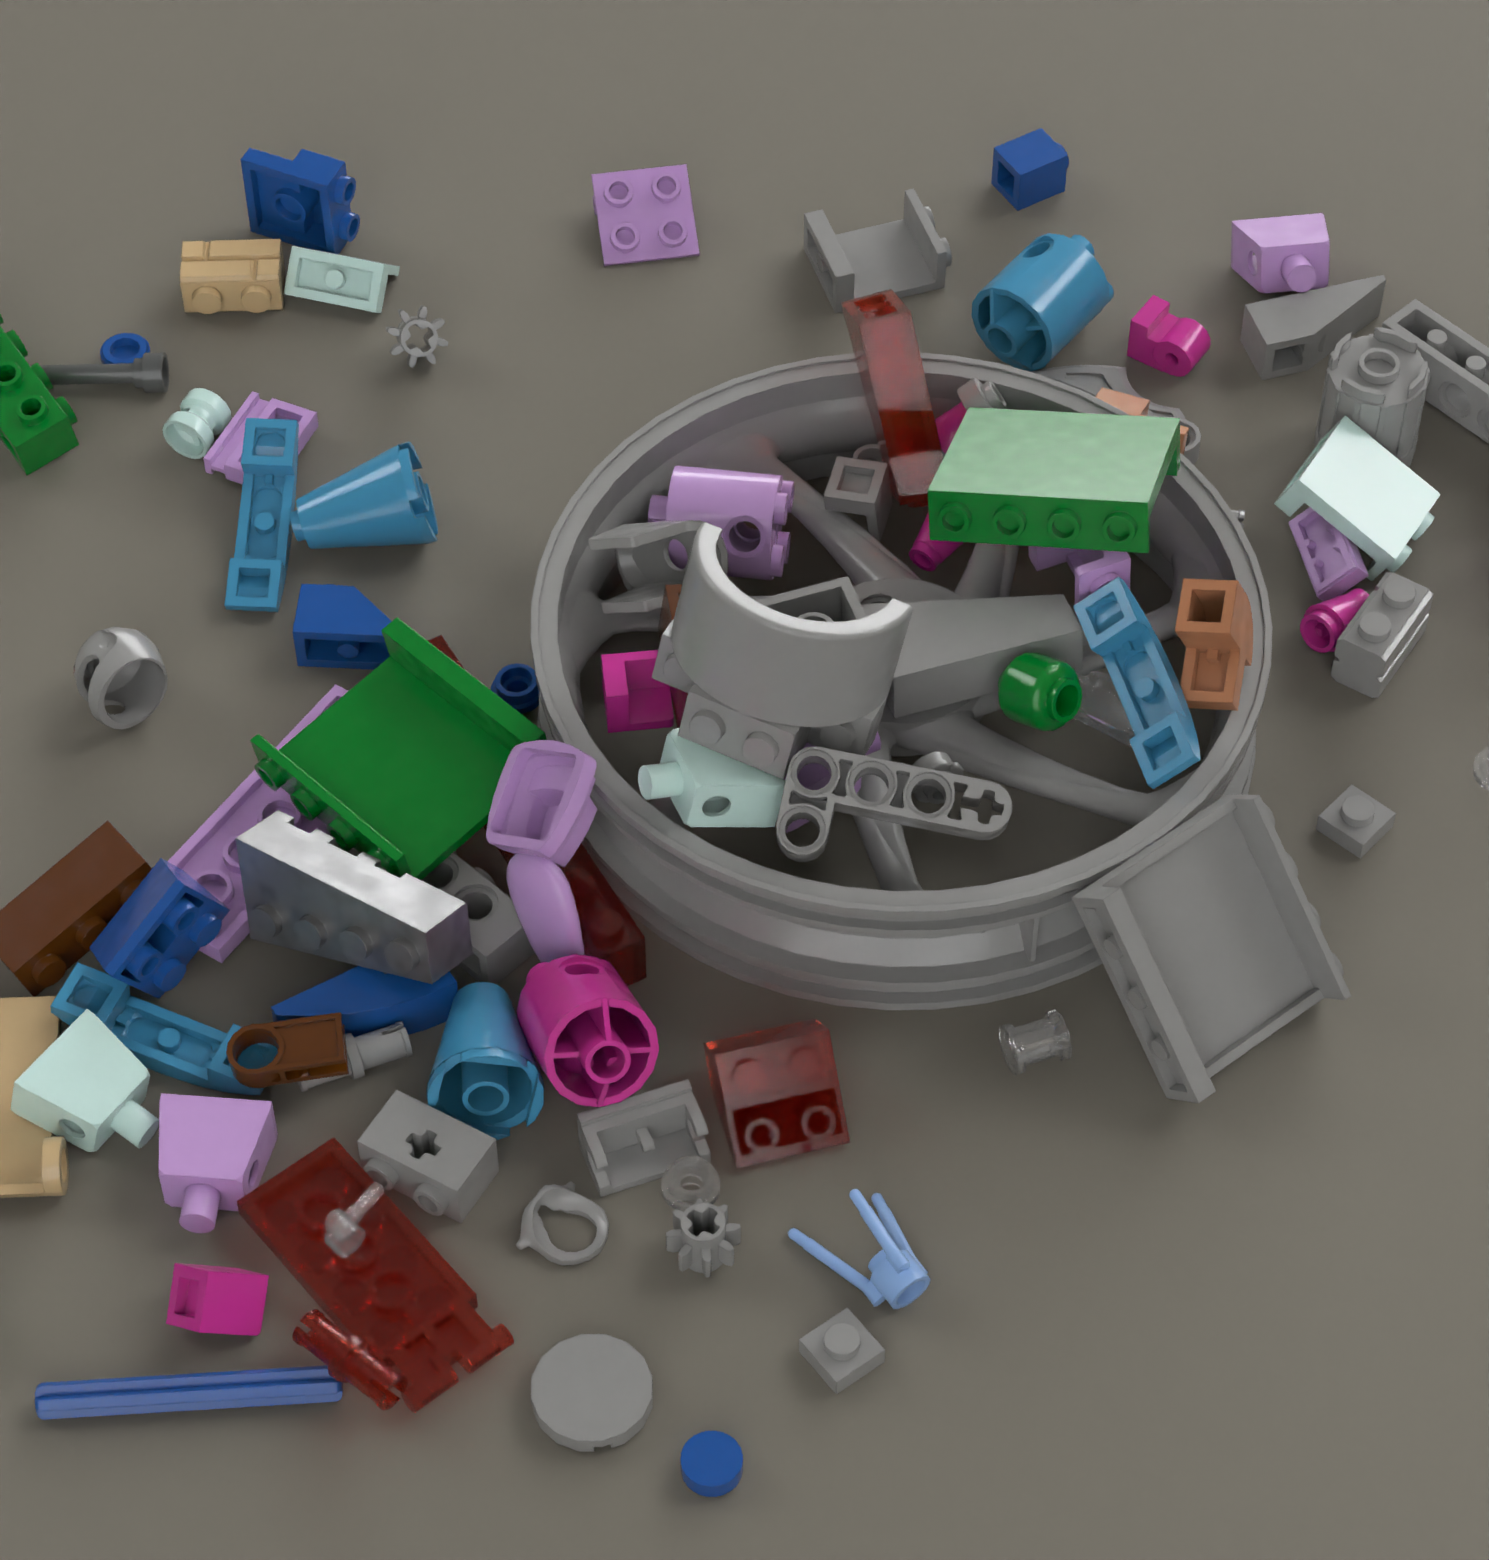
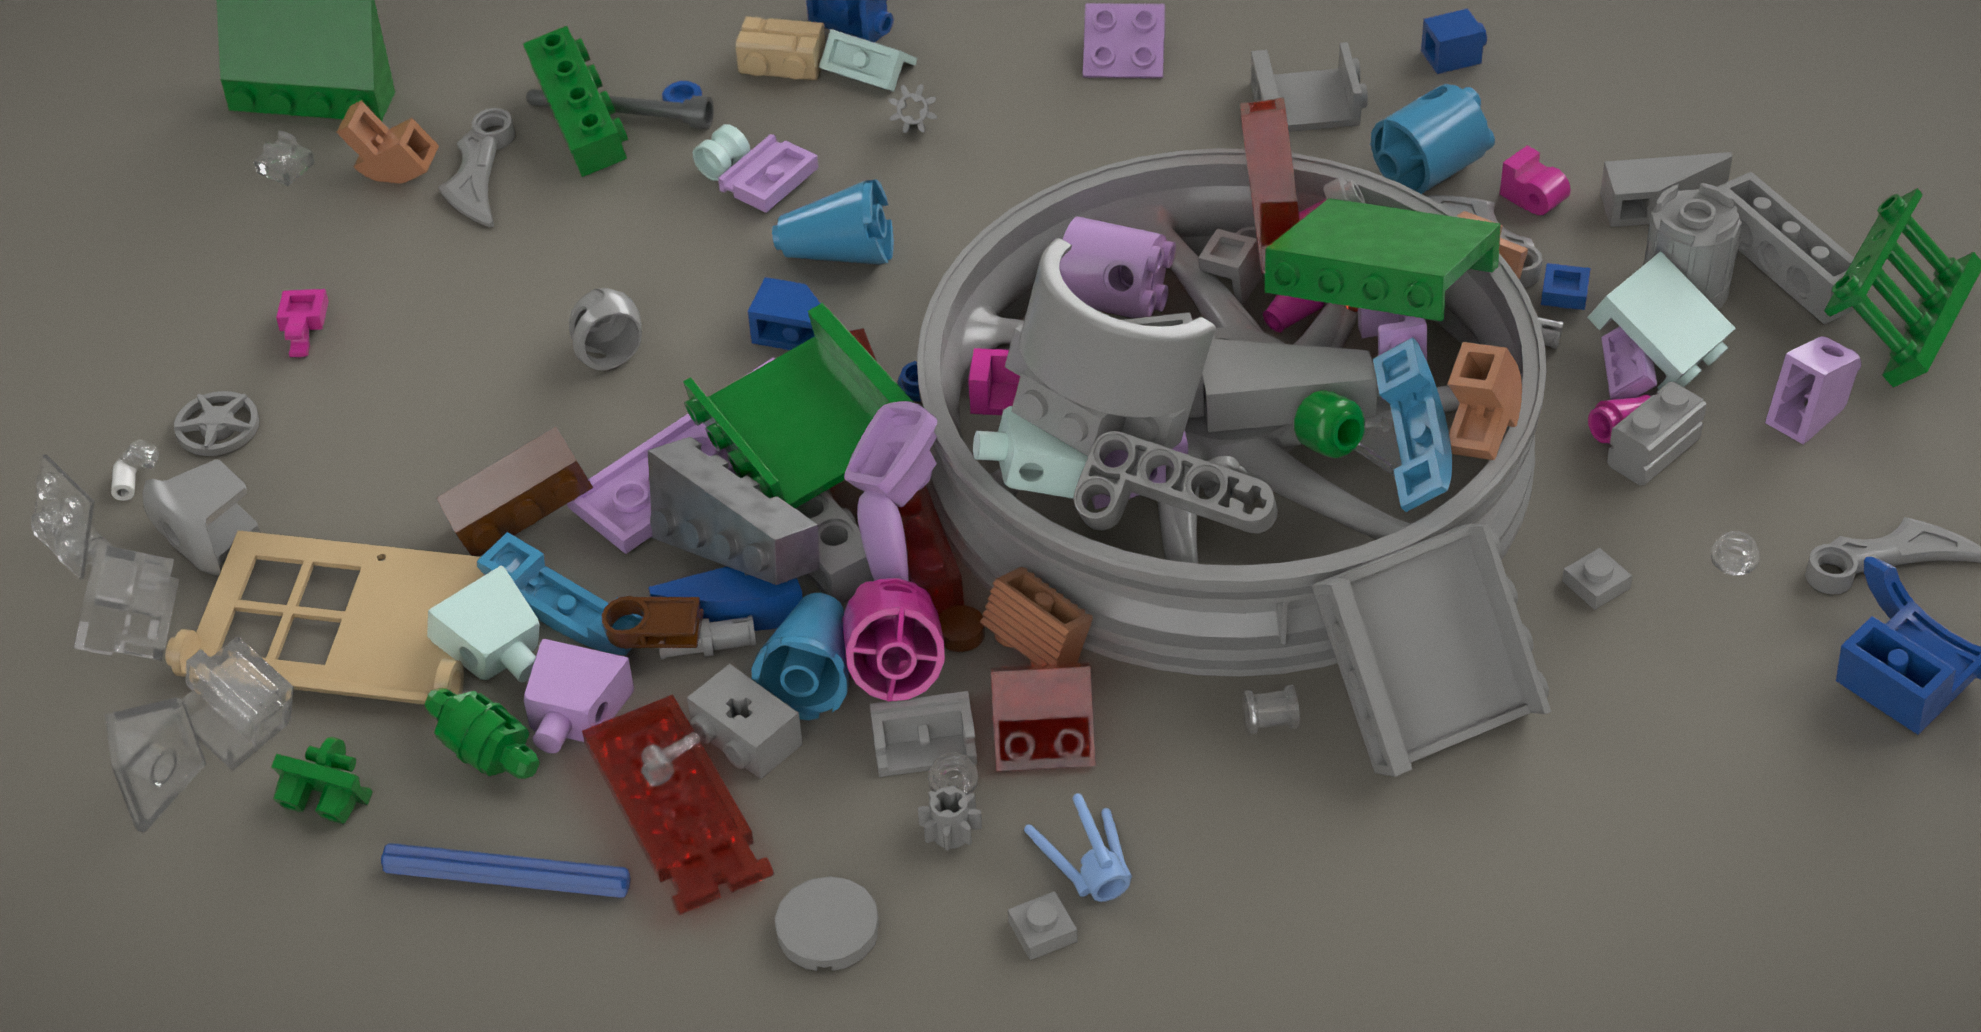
camera: 15 degrees right, 5 degrees down
(115, 1224) = (482, 733): none -> green piece
(159, 930) = (577, 517): blue slope -> none
(217, 1299) = (546, 803): dark pink panel -> none
(264, 522) = (751, 241): dark azure slope -> none
(350, 1359) = (635, 863): clear red pin -> none
(567, 1200) = (840, 771): light grey piece -> none
(646, 563) = (1078, 270): light grey piece -> none
(654, 992) = (961, 628): none -> reddish brown tile
(711, 1463) = (909, 995): blue tile -> none
(741, 976) = (1035, 619): none -> nougat brick
(1234, 464) = (1565, 286): none -> blue plate
(1287, 251) = (1649, 126): lavender torso -> none

